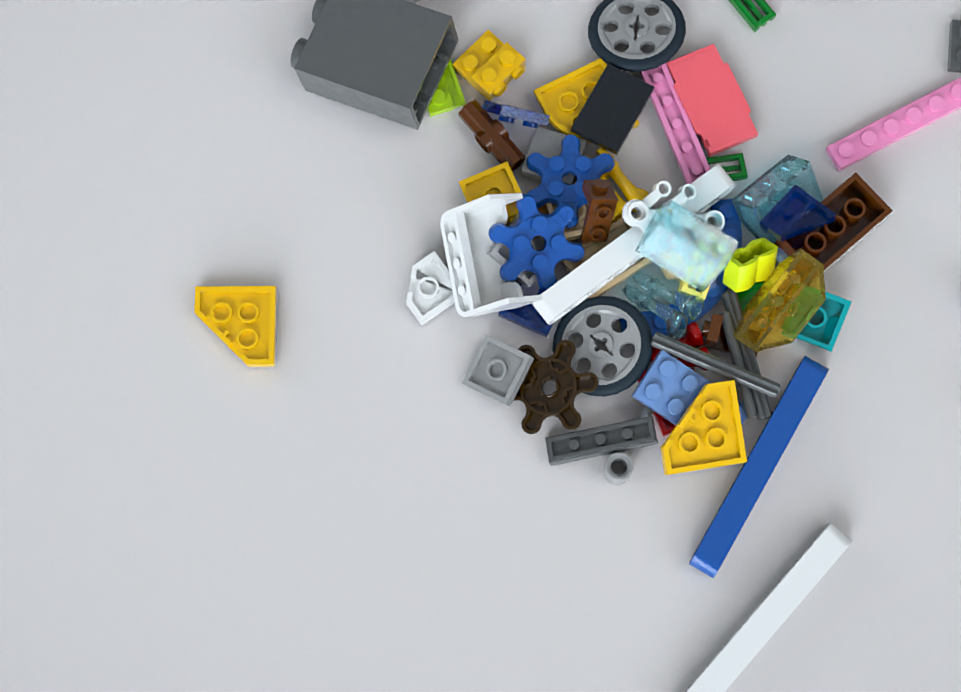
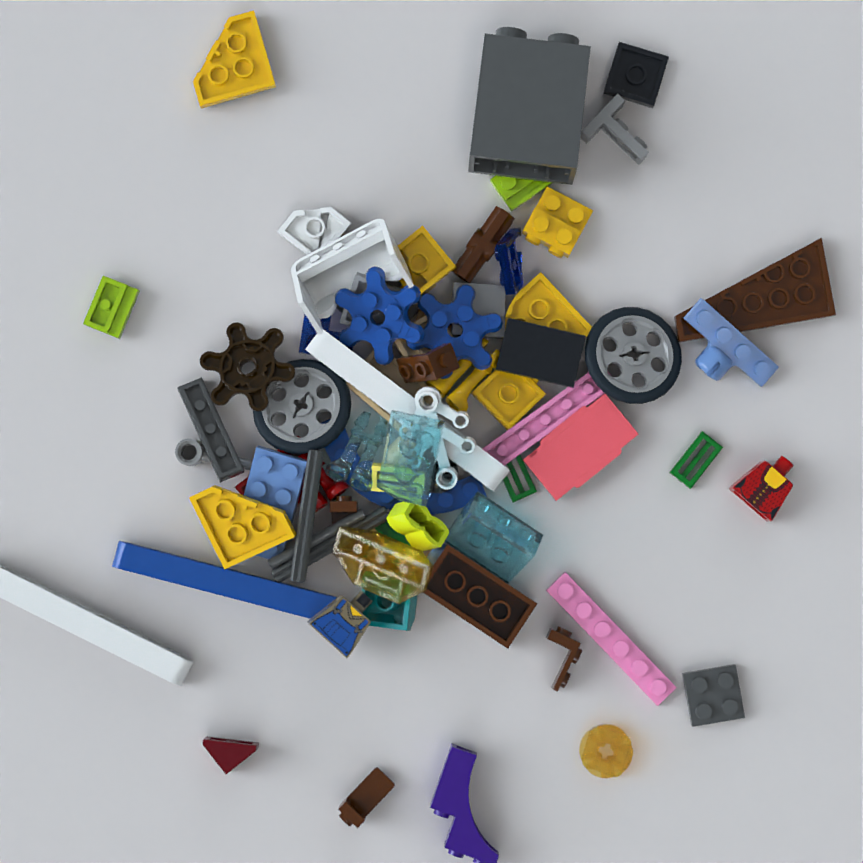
camera: 75 degrees right, 10 degrees up
(449, 507) = (111, 307): none -> lime plate
(498, 370) = (250, 315): light grey plate -> none
(645, 152) = (508, 396): none -> yellow plate
(796, 215) = (474, 555): clear blue wing -> none
(830, 358) = (343, 622): none -> torso
(912, 164) = (562, 637): none -> reddish brown bracket
(930, 509) = (229, 752): none -> dark red slope

